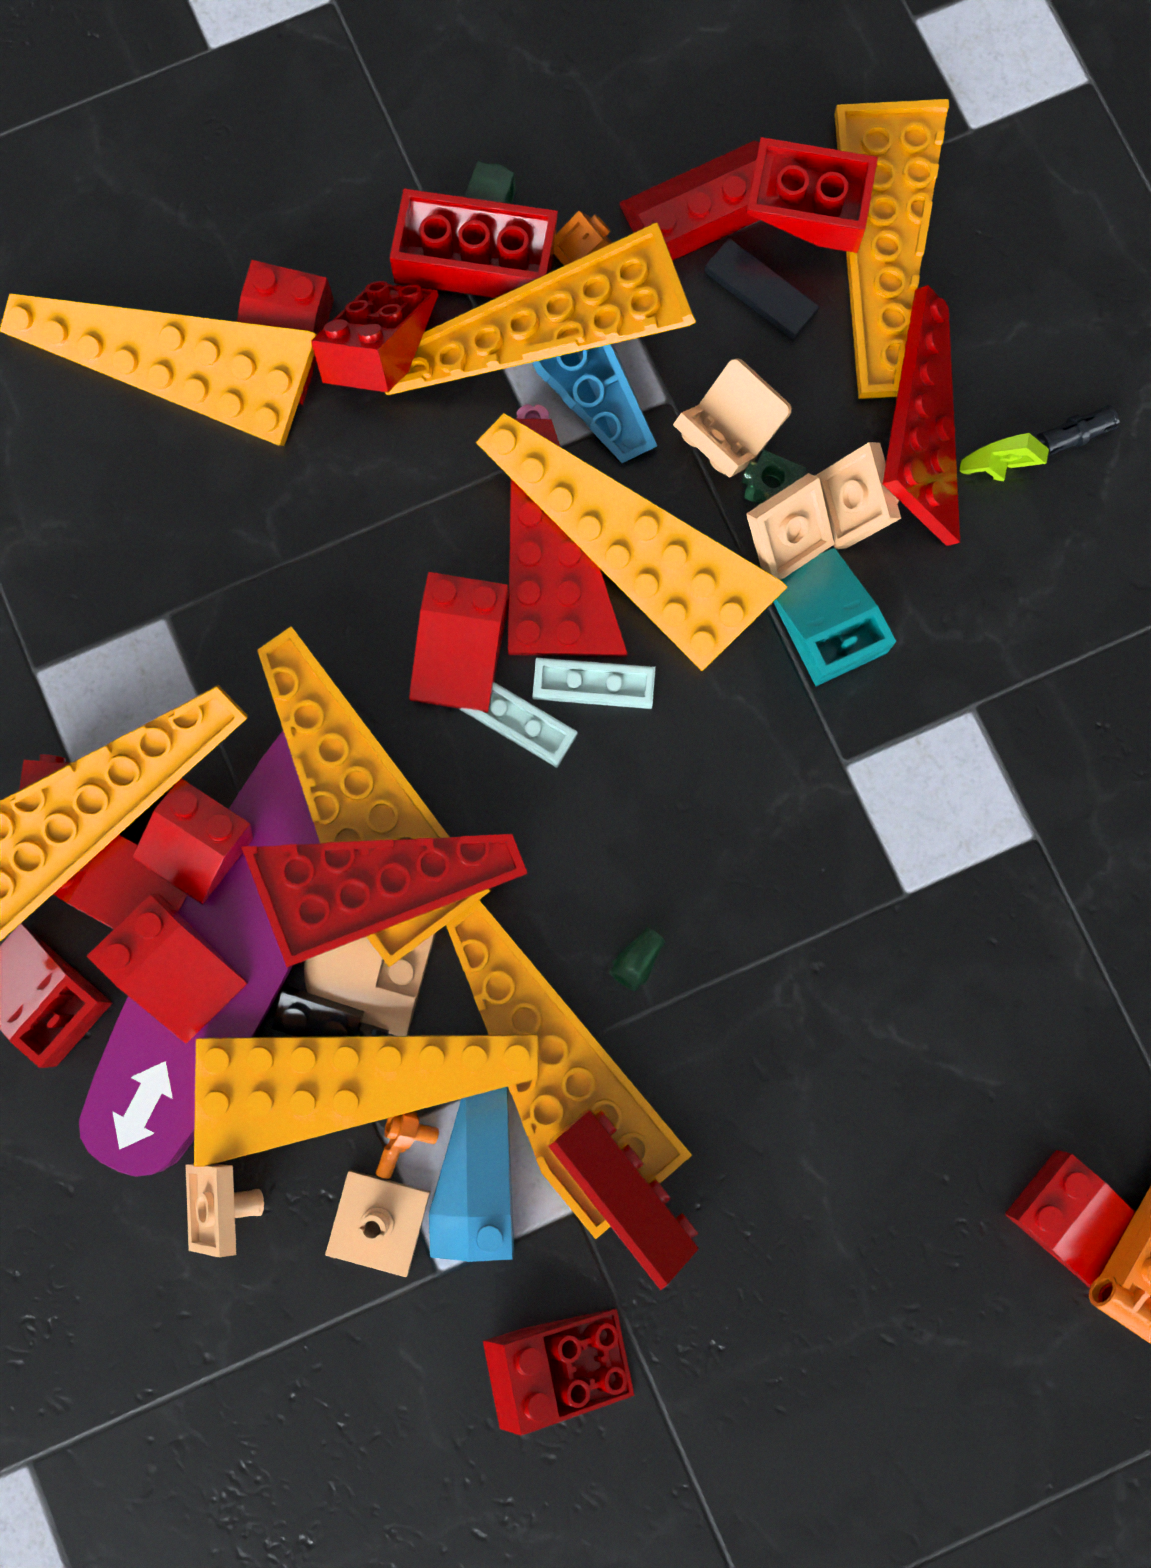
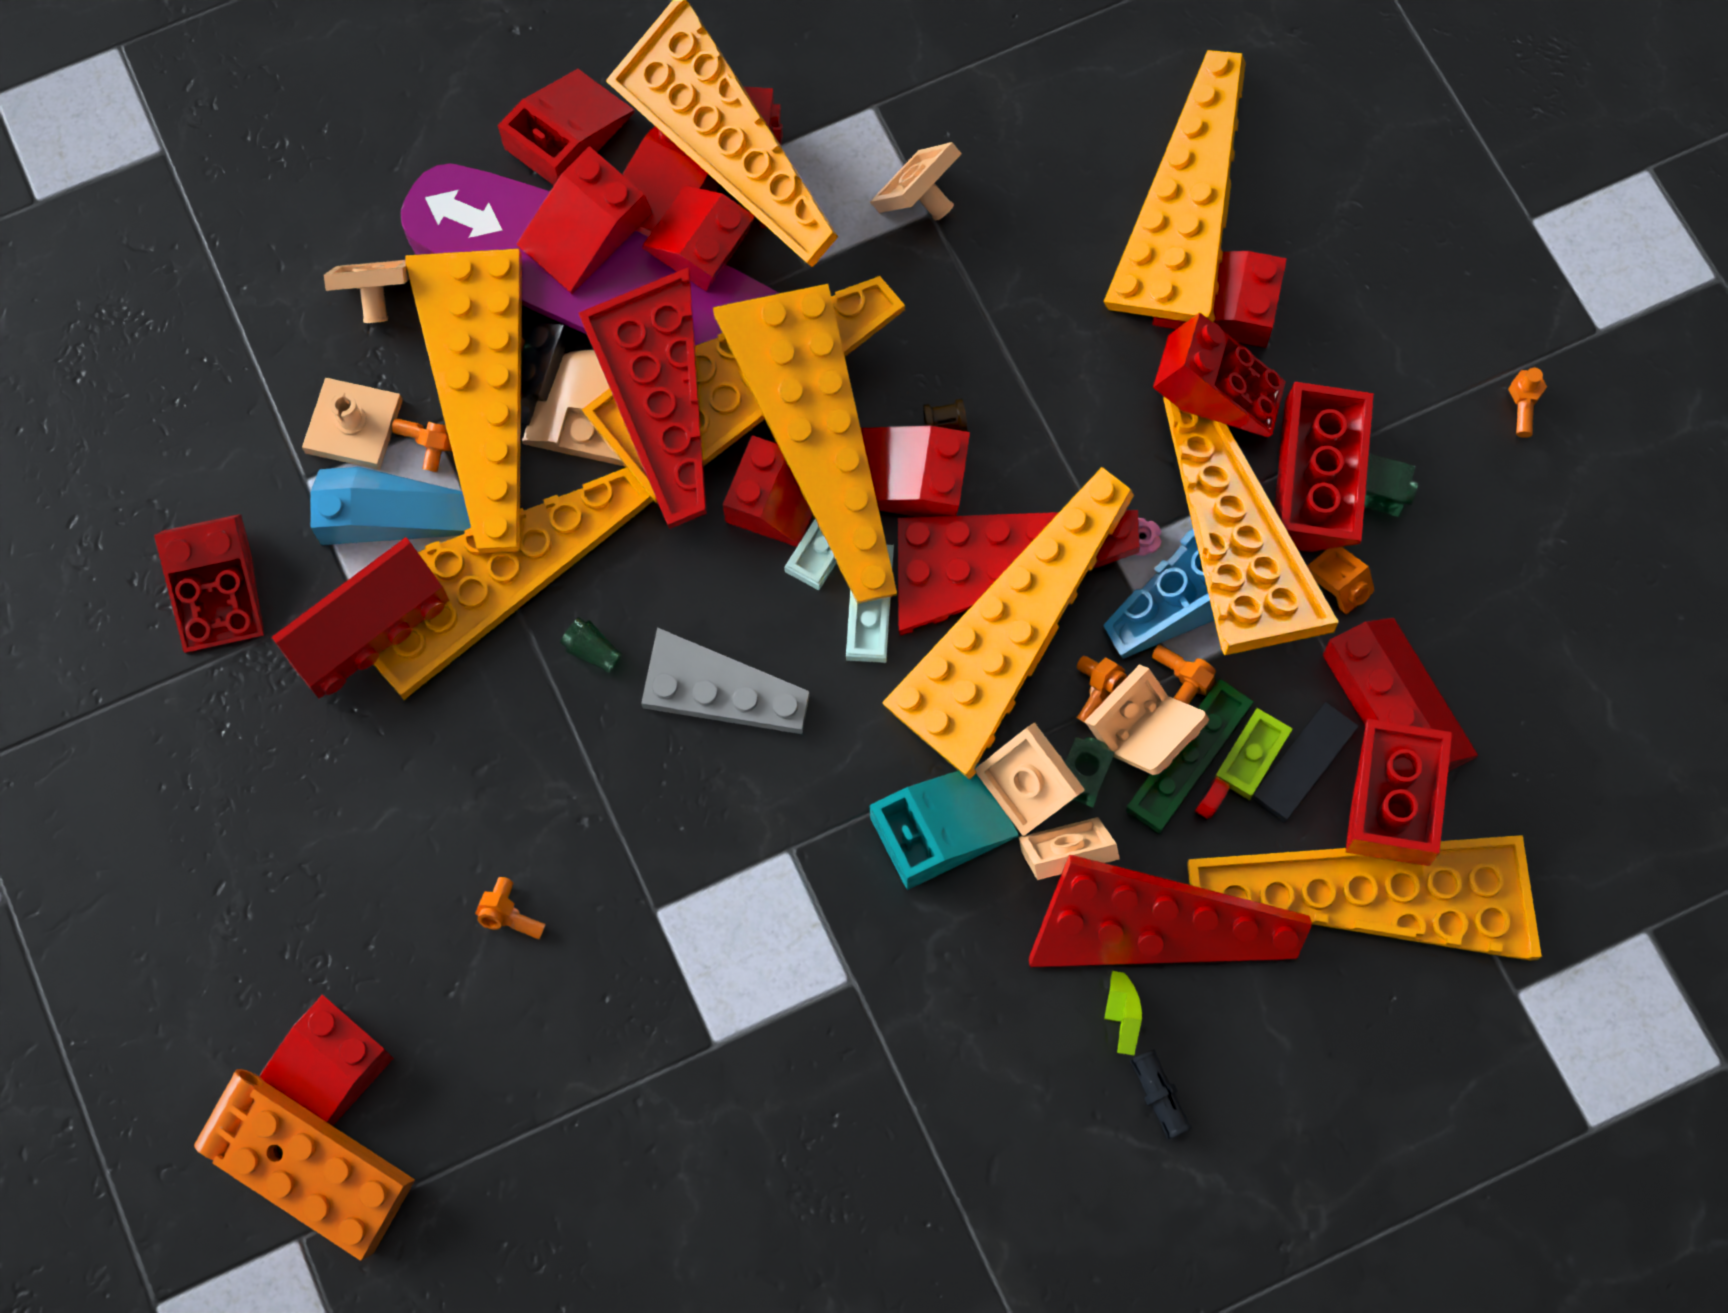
camera: 90 degrees right, 10 degrees down
(134, 620) = (917, 182): none -> light nougat tile
(373, 733) = (803, 387): none -> light orange wing
(395, 65) = (1526, 391): none -> orange piece
(401, 602) = (946, 416): none -> dark brown bush
(477, 774) = (767, 496): none -> red slope
(678, 378) = (1195, 676): none -> orange piece
(679, 840) = (712, 686): none -> light grey wing
(681, 459) = (1104, 680): none -> orange piece
(712, 354) = (1166, 791): none -> dark green plate
(755, 332) = (1253, 753): none -> lime plate
(799, 370) = (1212, 797): none -> red tile
(915, 1049) = (498, 910): none -> orange piece

